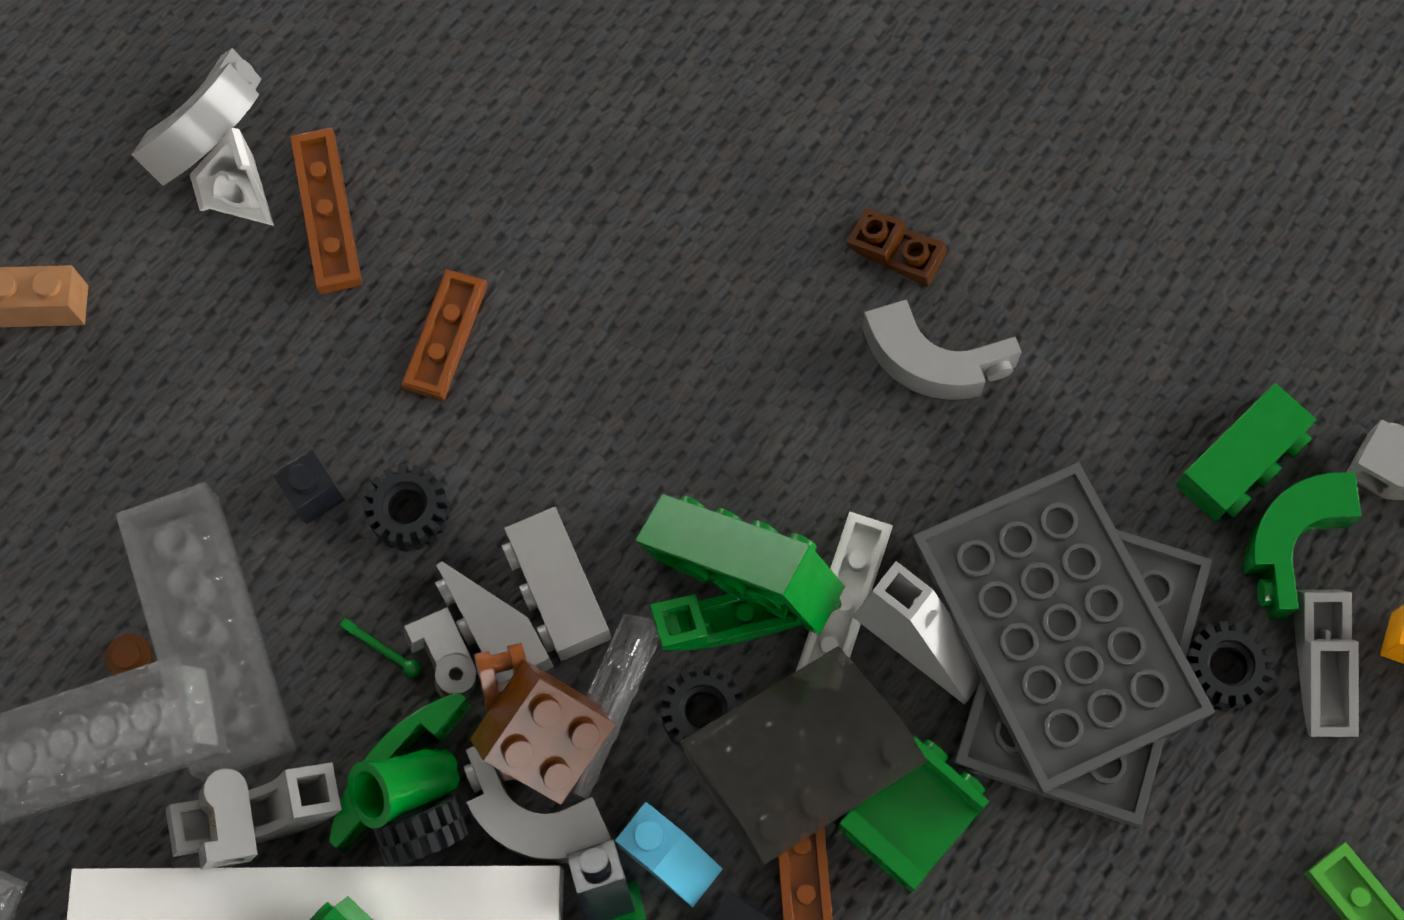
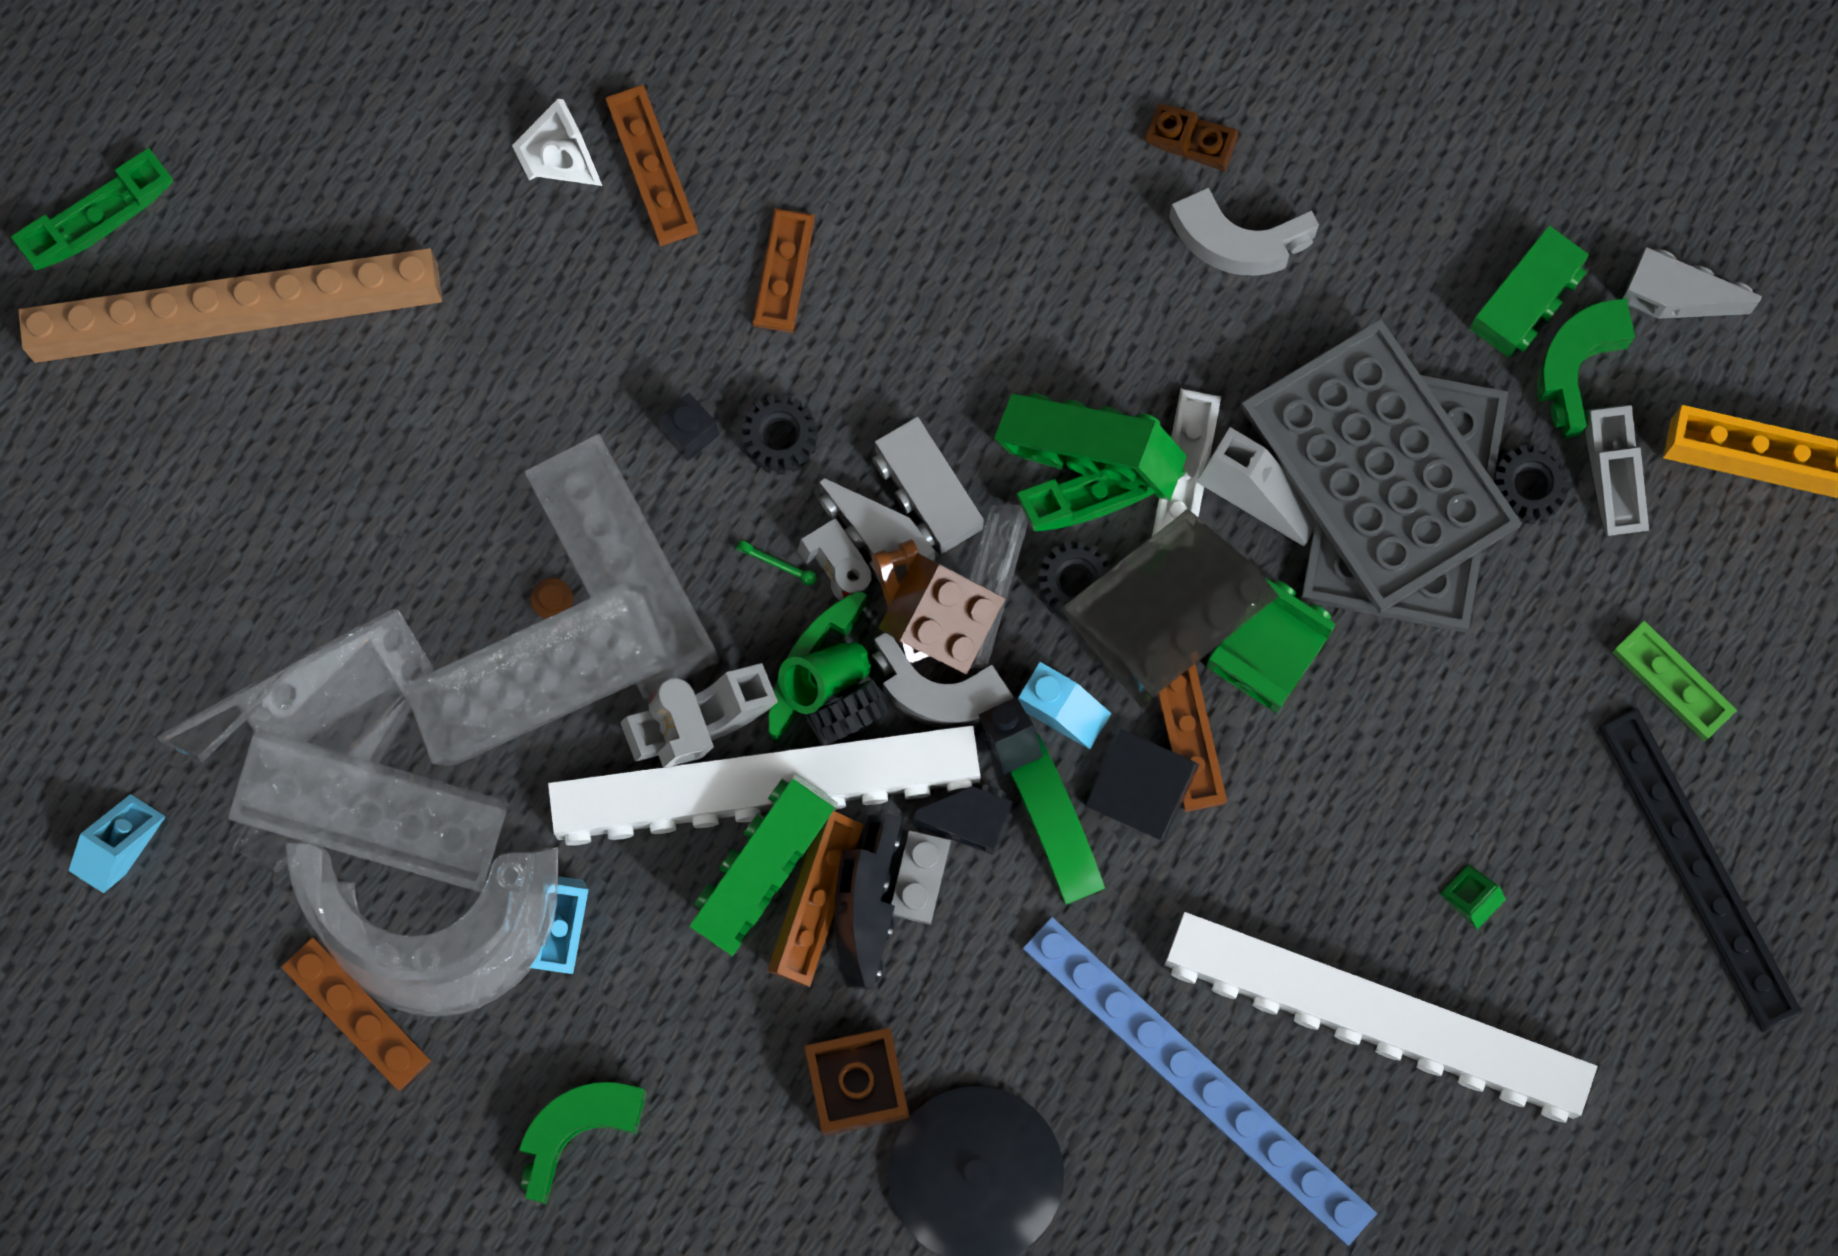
camera: 10 degrees left, 5 degrees up
(201, 120) = (522, 96): light grey arch -> none

